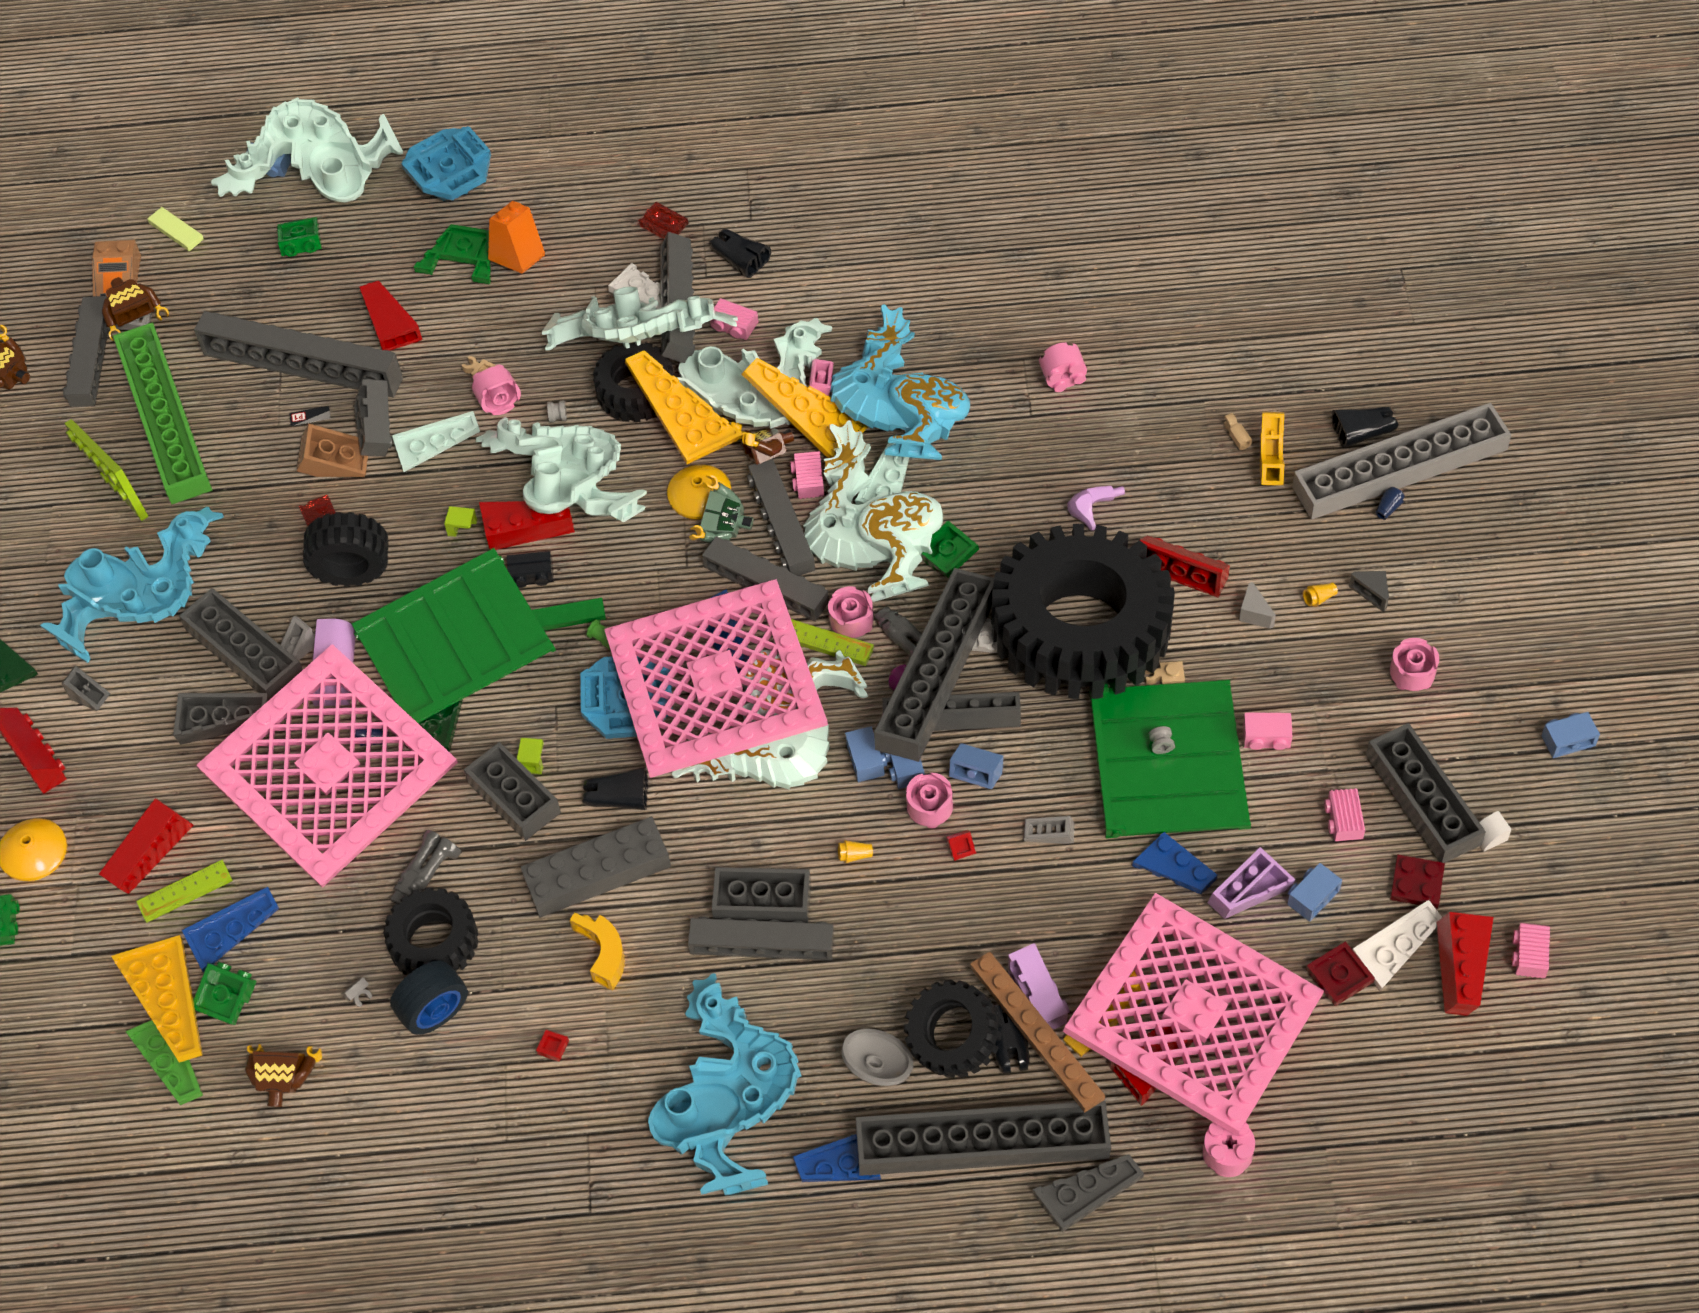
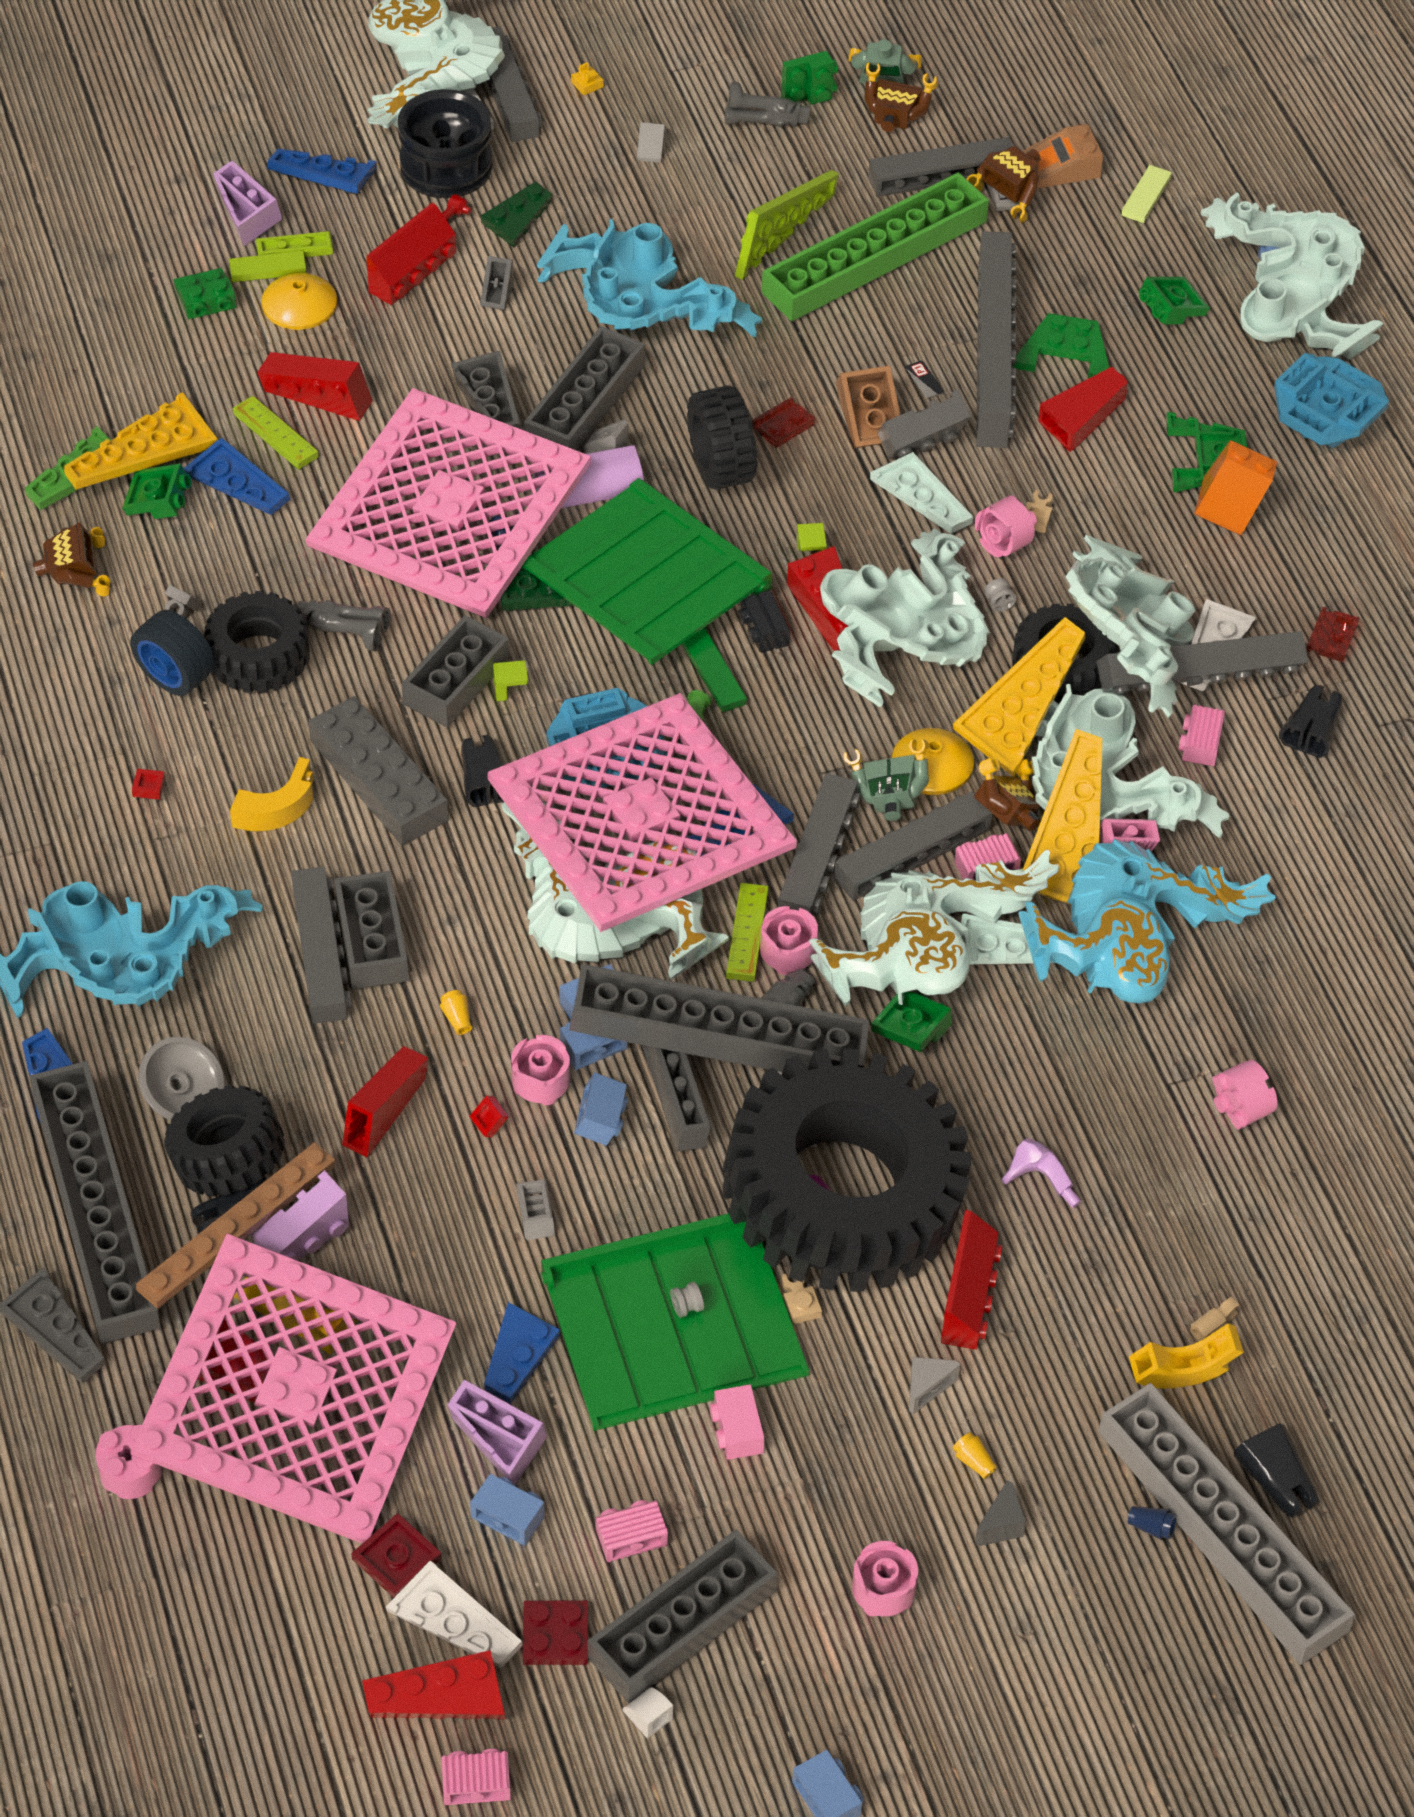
camera: 70 degrees right, 5 degrees down
(312, 307) = (1065, 338): none -> green wing
(930, 913) = (382, 1100): none -> red slope

